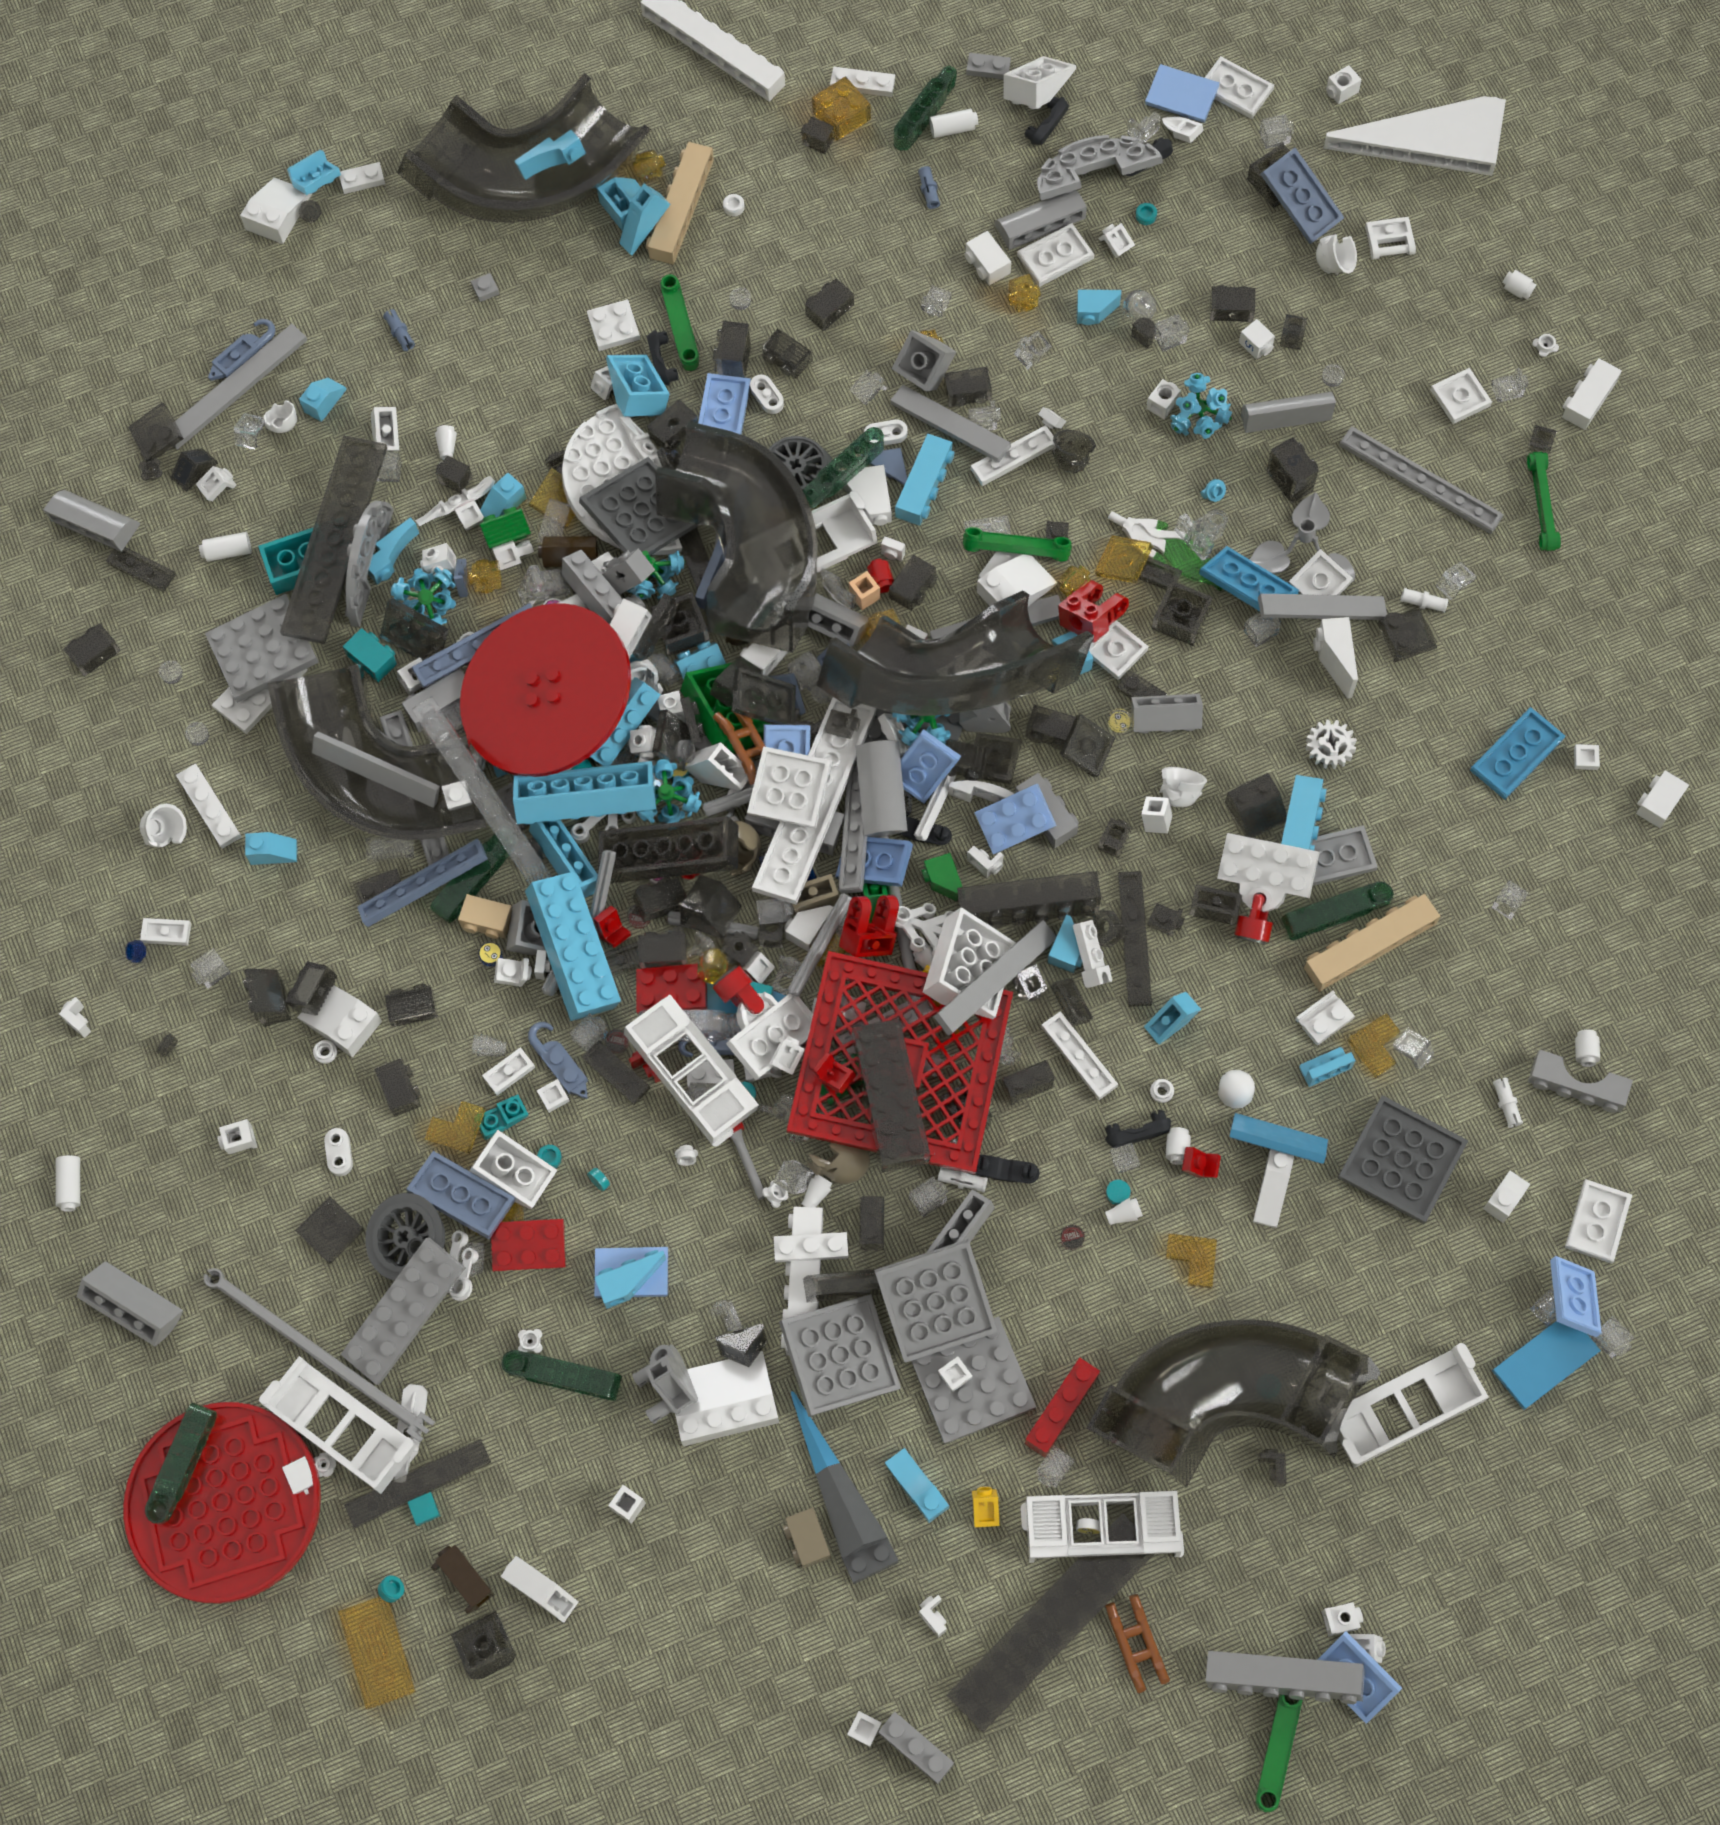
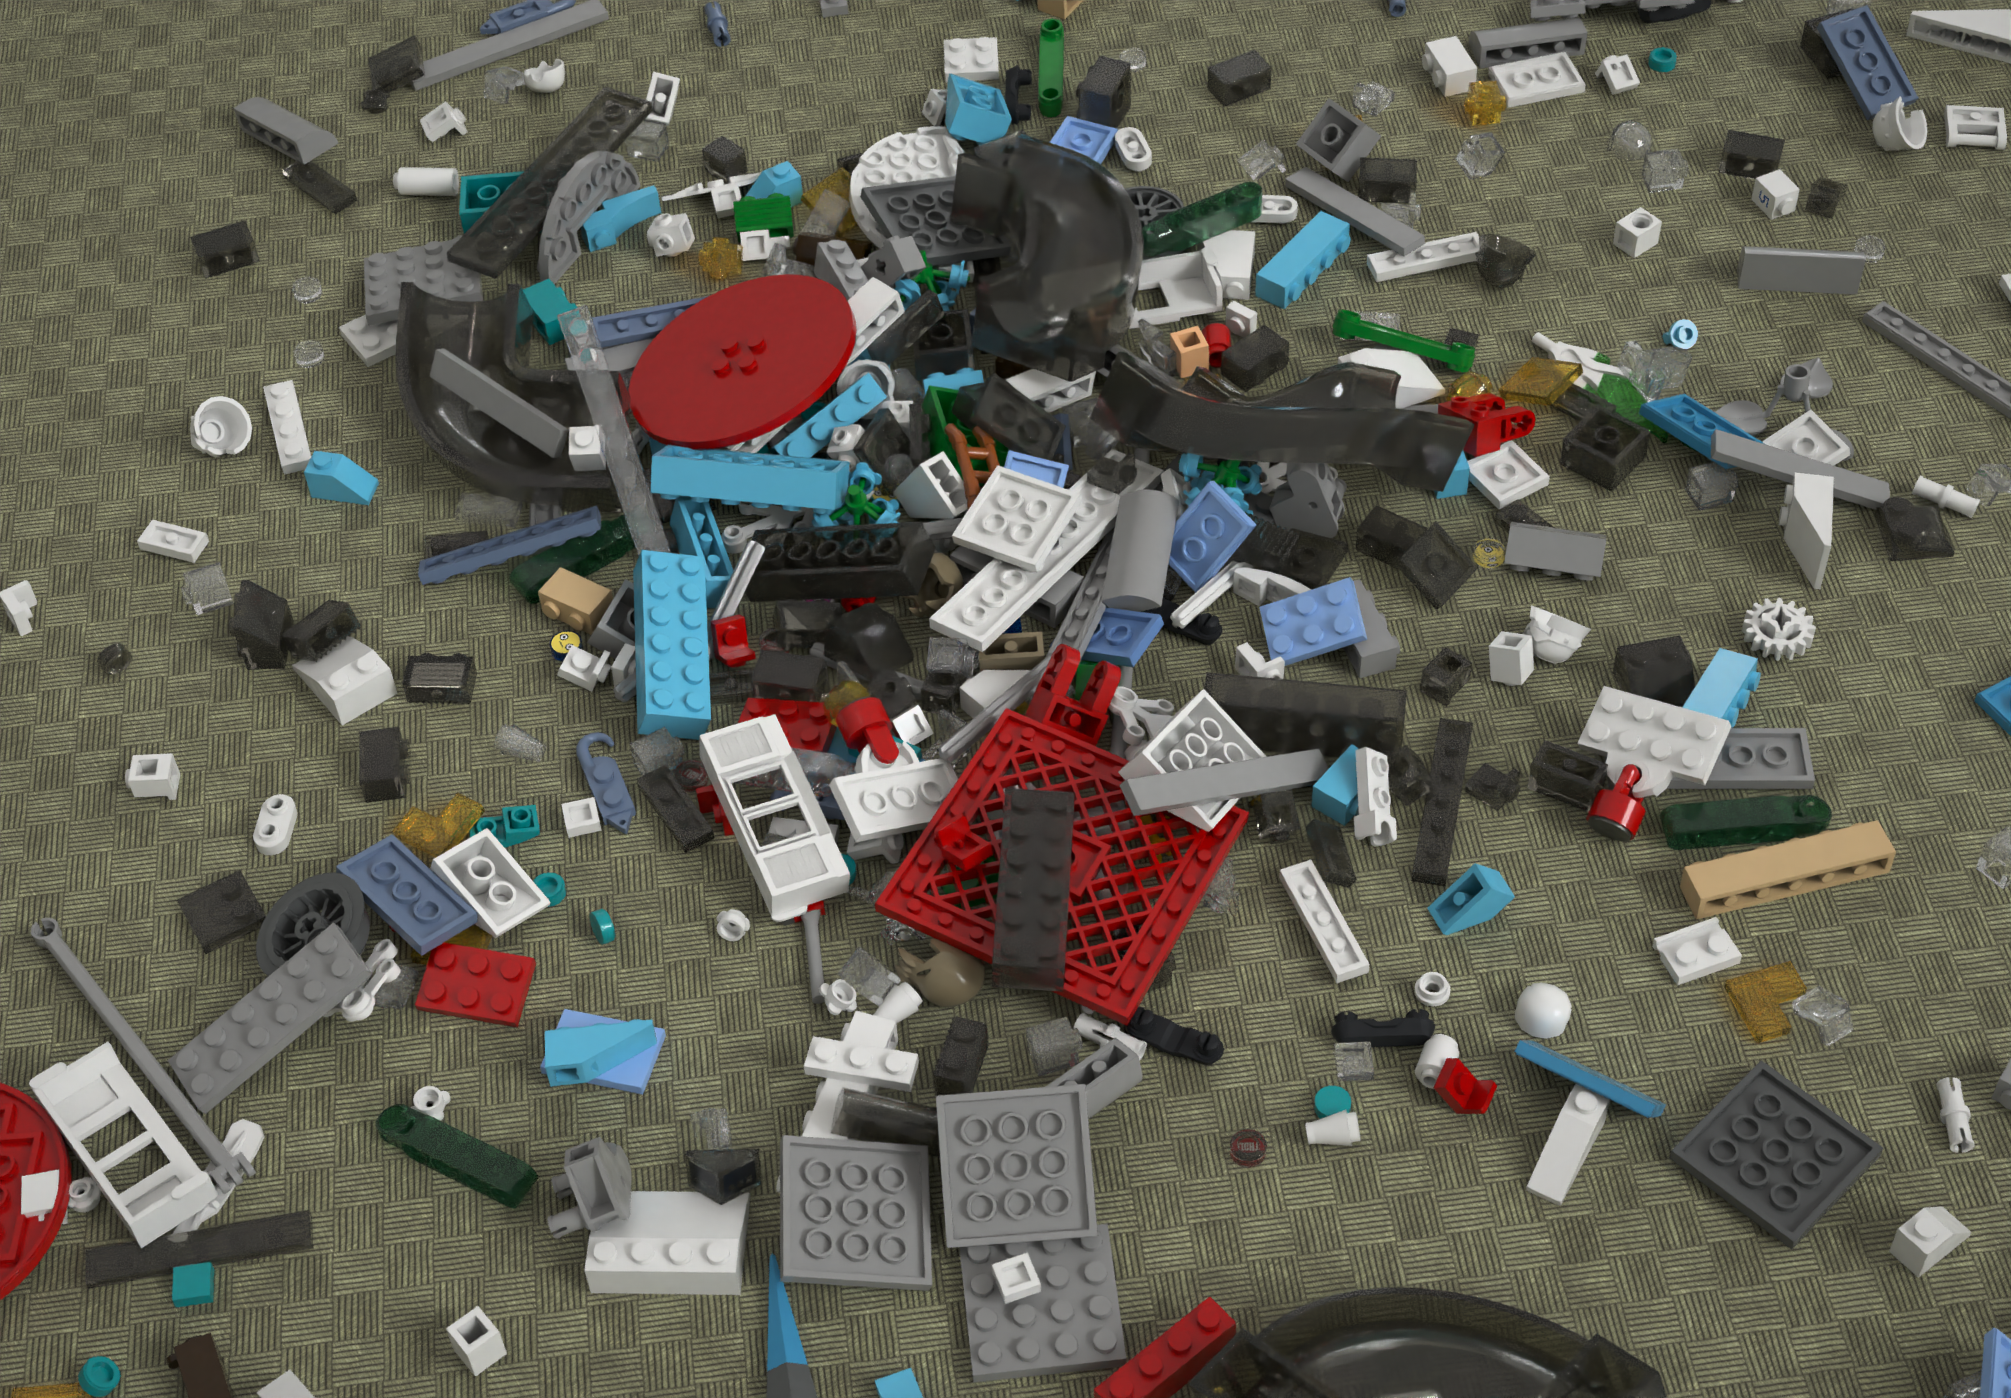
camera: 15 degrees right, 20 degrees down
(135, 951) = (127, 553): clear blue plate -> none
(192, 467) = (418, 103): clear smoke slope -> none
(321, 398) = (598, 67): medium azure slope -> none
(322, 1045) = (308, 707): white plate -> none
(412, 631) = (607, 286): clear smoke plate -> none
(421, 582) = (637, 253): medium azure plant -> none
(445, 440) = (730, 124): white cone -> none
(460, 577) = (689, 258): sand blue tile -> none
(508, 1071) = (534, 777): white plate -> none
(786, 354) = (1171, 114): clear smoke brick -> none
(787, 1054) = (909, 818): white bracket -> none
(893, 464) = (1267, 238): sand blue tile -> none
(942, 875) = (1190, 668): green slope -> none
(1028, 1082) = (1240, 935): clear smoke brick -> none
(1051, 419) = (1483, 224): white plate -> none
(1096, 305) = (1575, 130): medium azure slope -> none
(1143, 331) = (1628, 164): clear smoke brick -> none
(1194, 404) = (1669, 231): medium azure plant -> none
(1198, 1252) = (1431, 1209): clear yellow tile -> none
(1292, 469) = (1791, 323): clear smoke brick -> none
(1327, 1066) = (1687, 1008): medium azure bracket -> none

